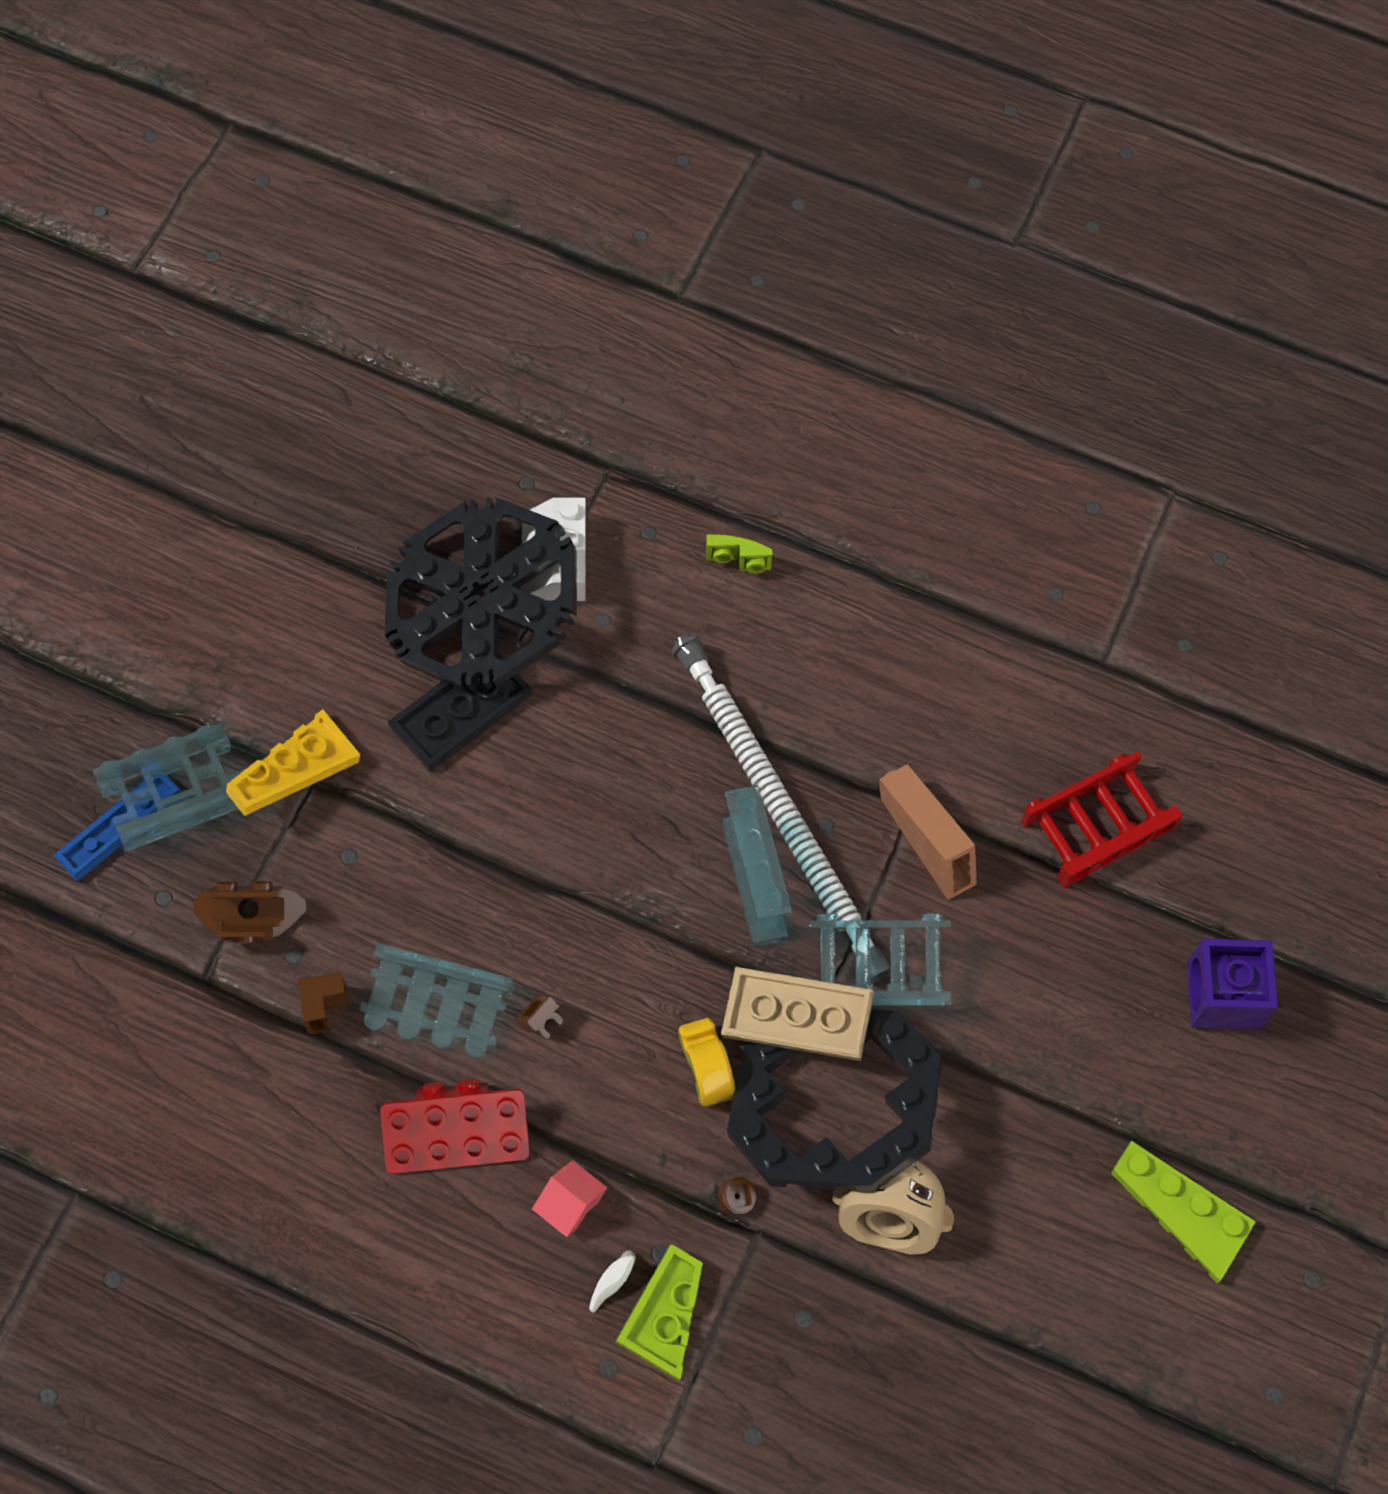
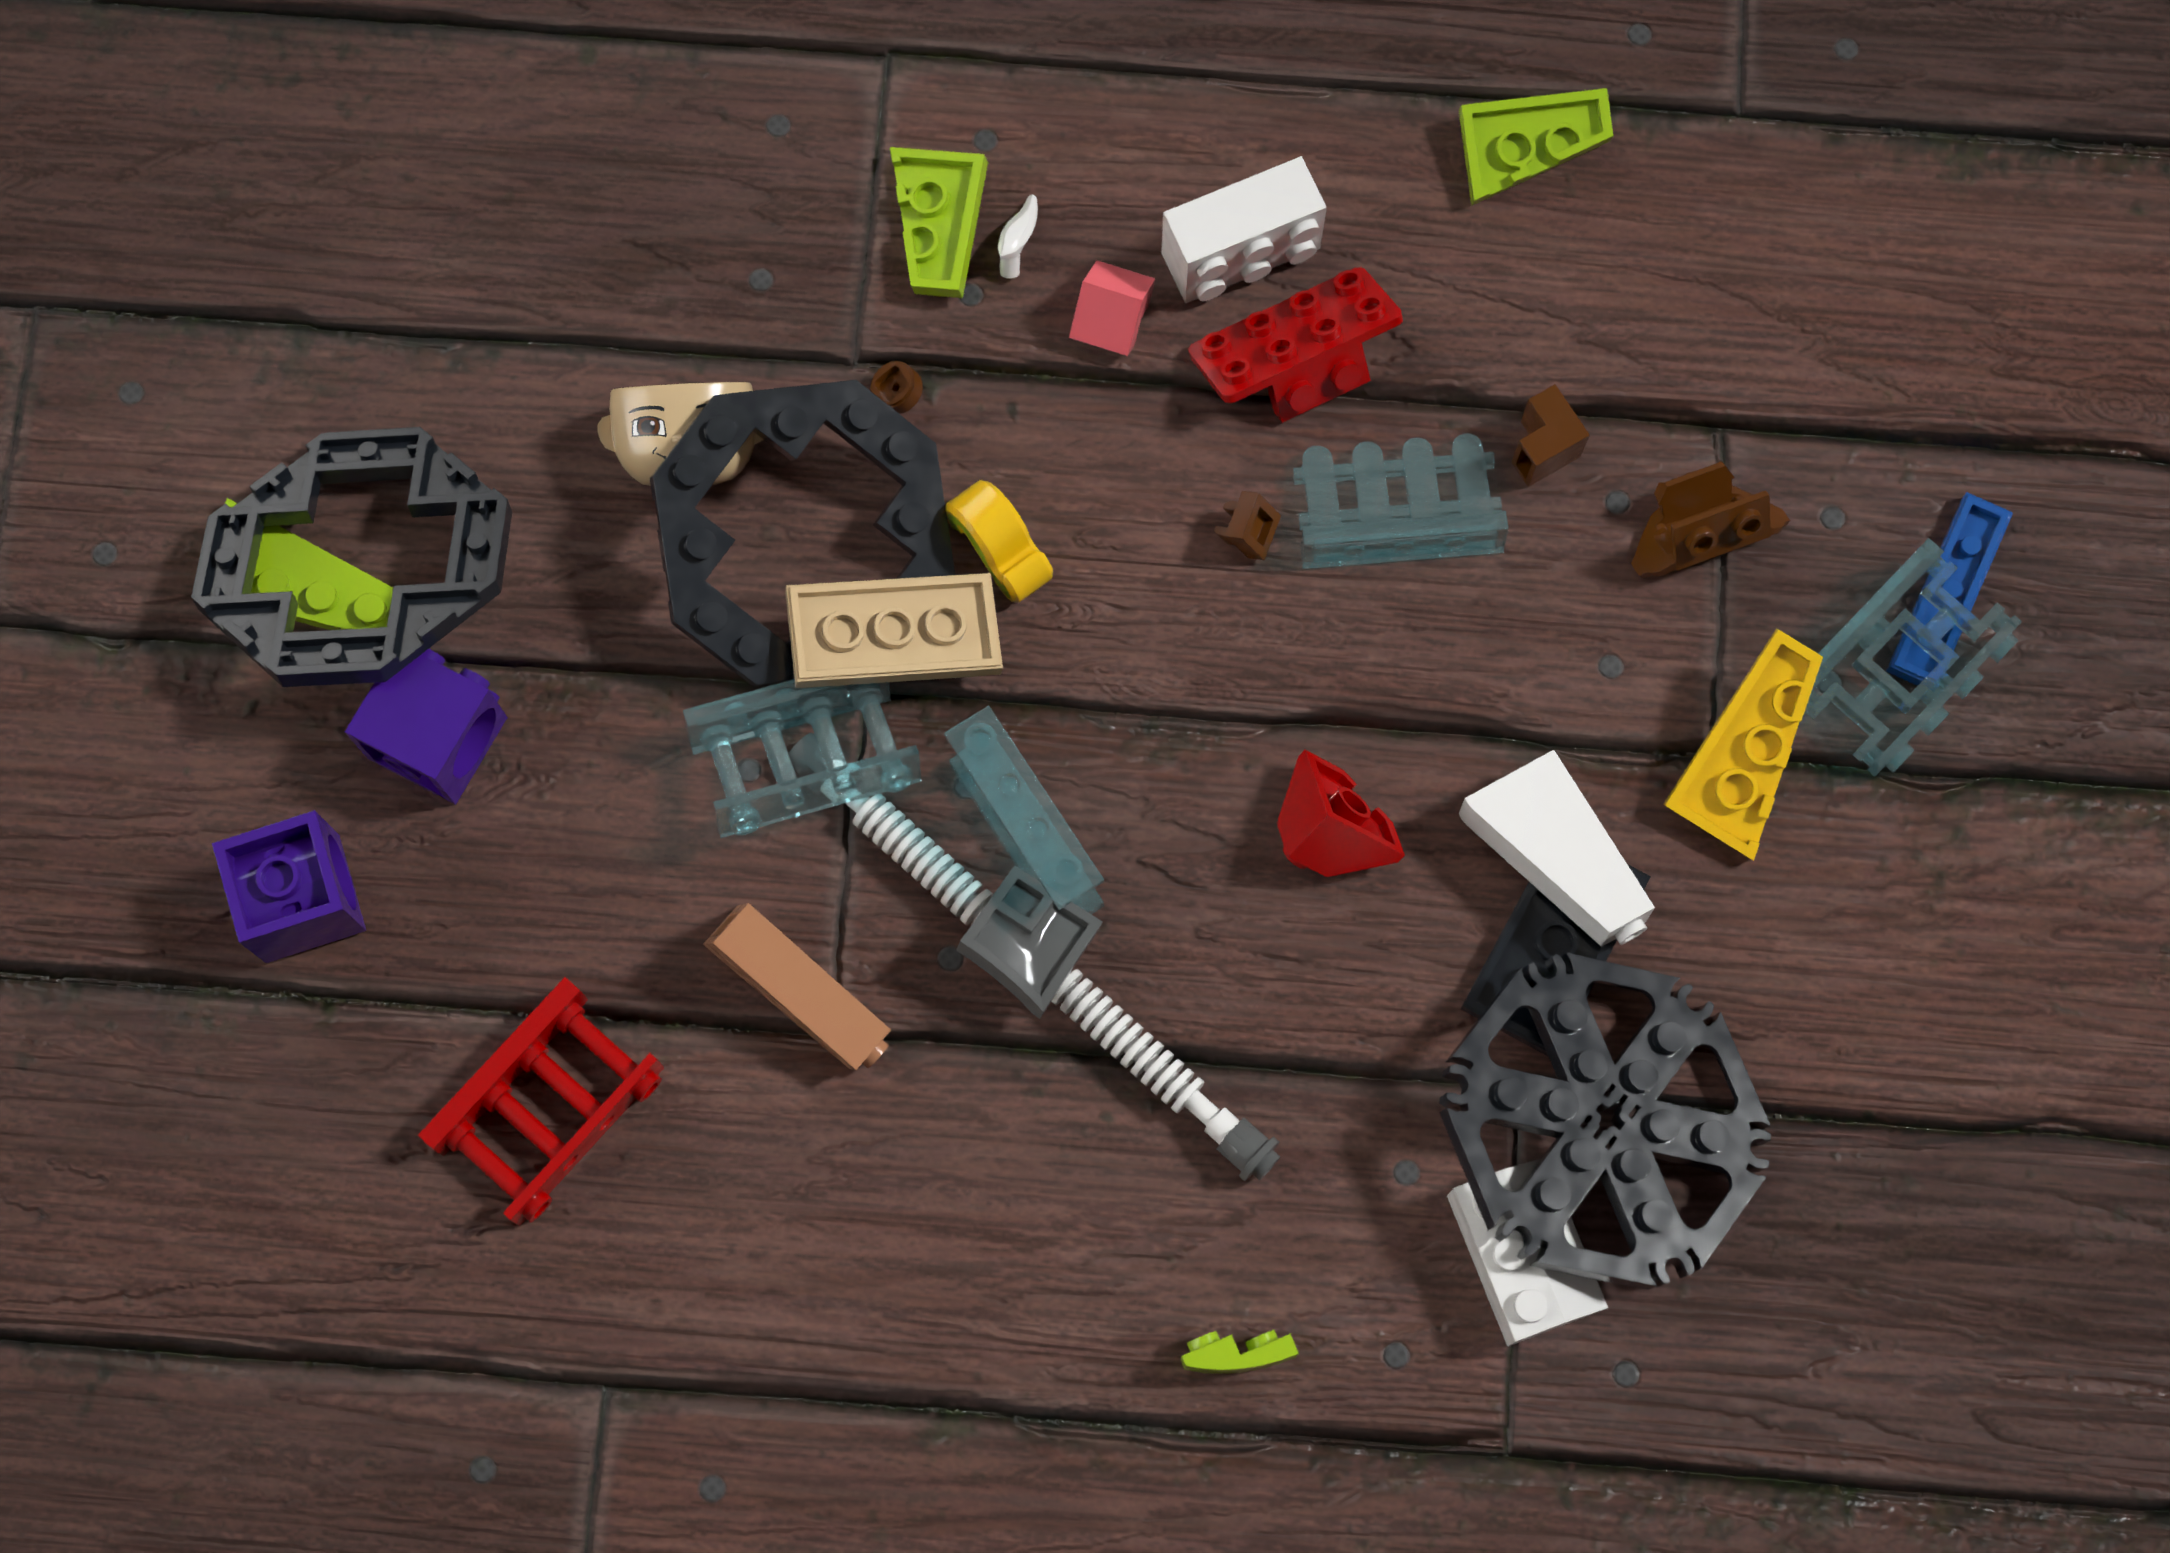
camera: 165 degrees right, 10 degrees up
(234, 1223) = (1528, 136): none -> lime wing
(437, 752) = (1559, 845): none -> white slope
(460, 1207) = (1243, 230): none -> white brick
(564, 813) = (1330, 825): none -> red slope
(786, 796) = (1028, 940): none -> dark grey plate
(1073, 1221) = (418, 612): none -> black plate
(1118, 1062) = (429, 724): none -> dark purple brick

